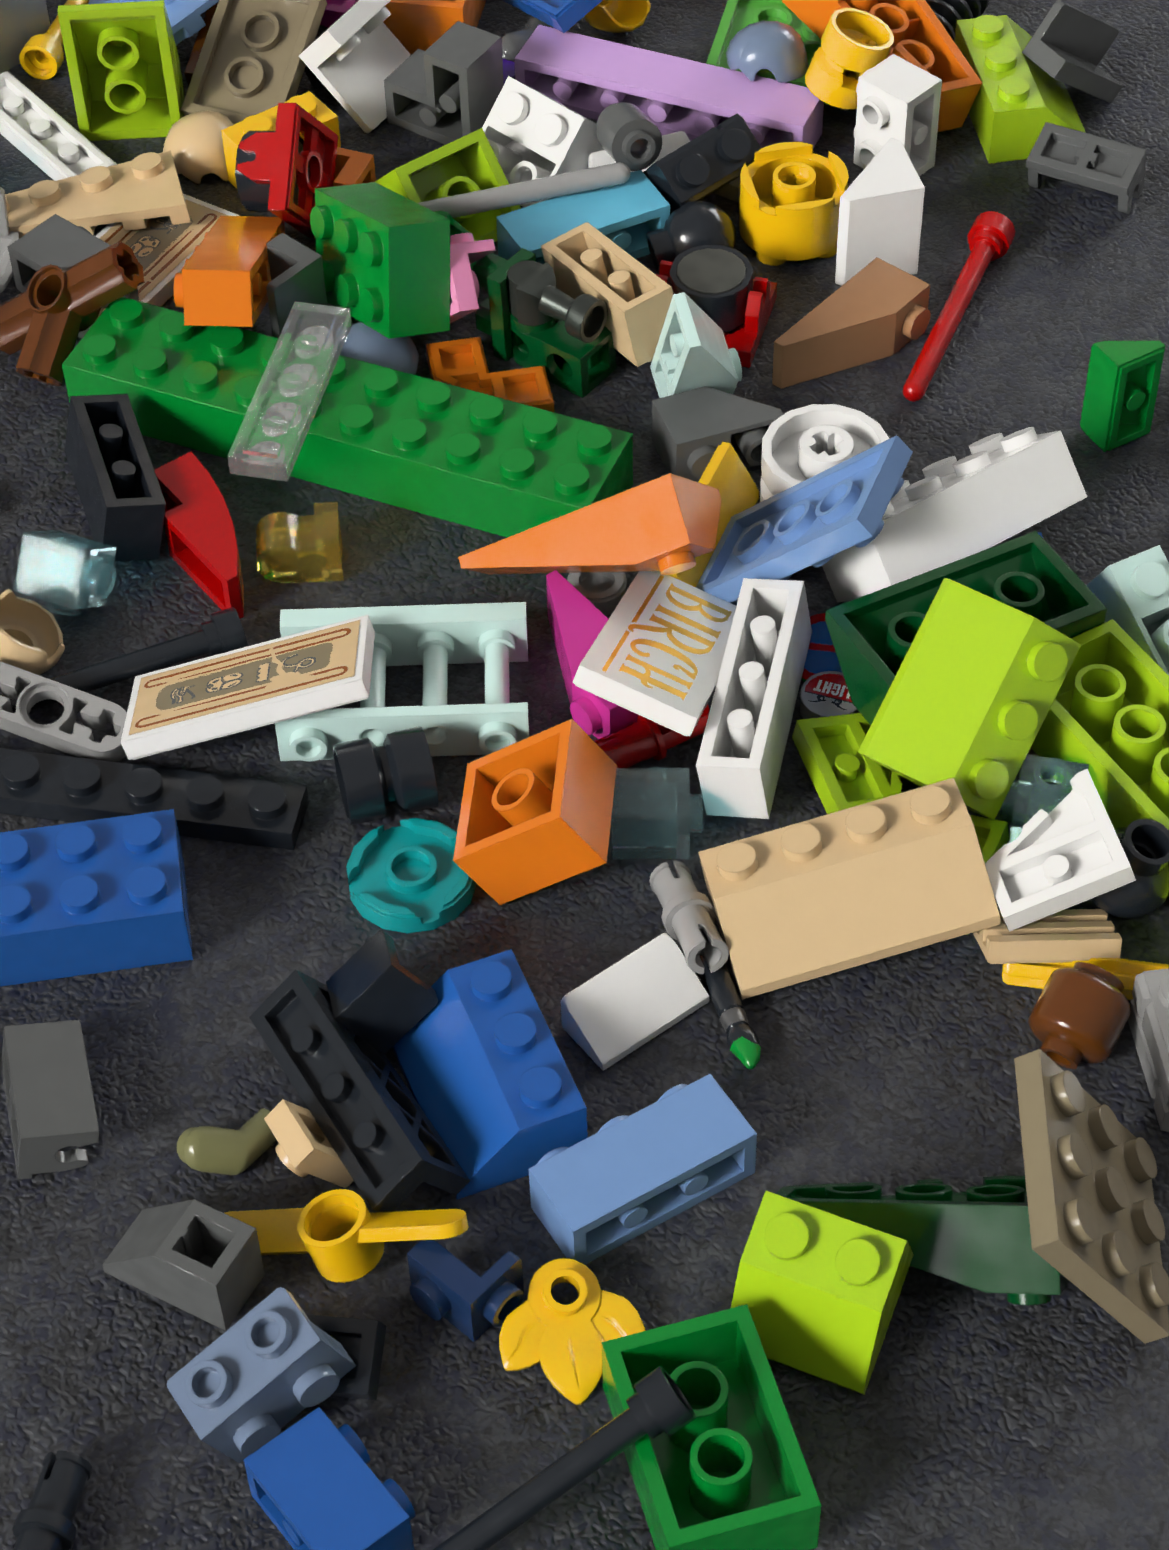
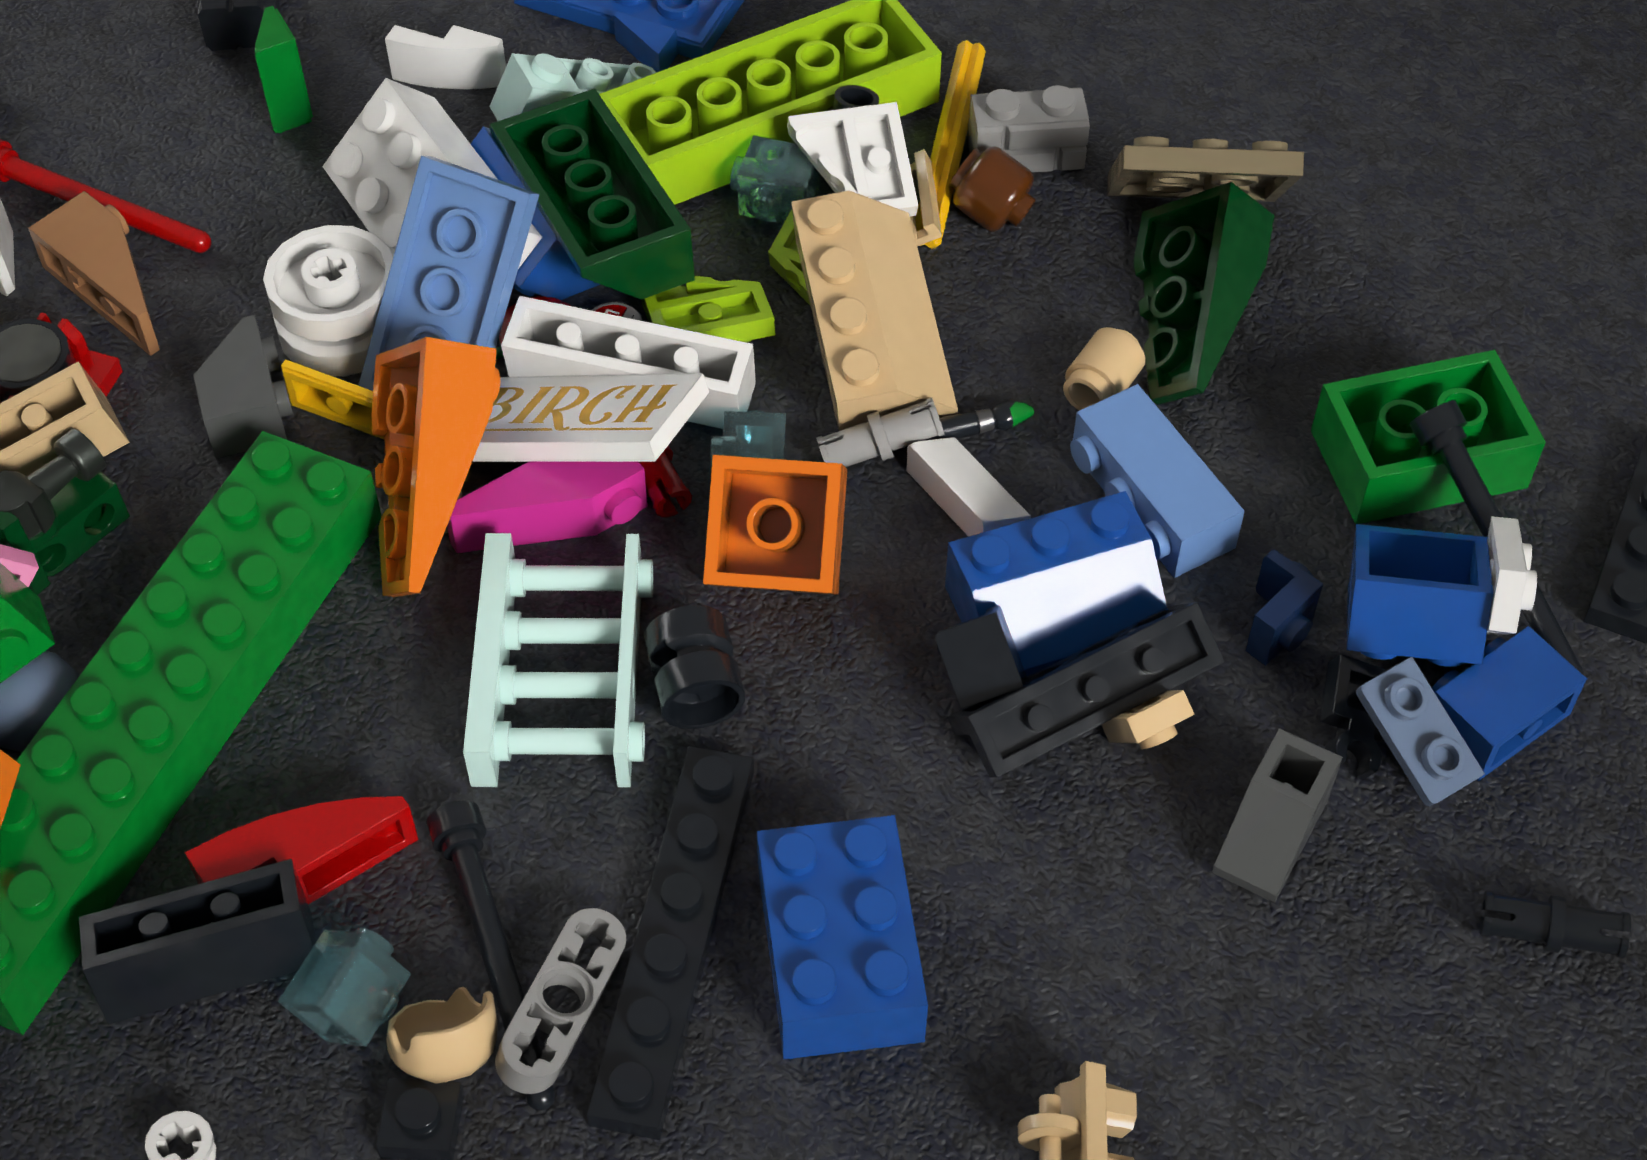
camera: 90 degrees left, 5 degrees up
(48, 1096) = (1089, 957): dark grey hinge -> none
(224, 1149) = (1137, 800): olive arm -> none
(249, 688) = (573, 781): tile -> none
(290, 392) = (151, 717): clear plate -> none
(301, 547) = (333, 751): clear yellow leg -> none
(342, 1212) = (1235, 735): yellow piece -> none
(408, 877) = (802, 663): teal tile -> none
(437, 1461) = (1511, 576): none -> white wing
(449, 1394) = (1419, 595): none -> blue piece
(465, 366) = (115, 575): orange tile -> none
(566, 1336) = (1307, 536): yellow plate -> none
(693, 352) = (165, 373): light aqua slope -> none
(804, 1124) = (1103, 367): none -> tan brick
(820, 1289) = (1277, 356): lime slope -> none
(970, 696) = (705, 178): lime slope -> none

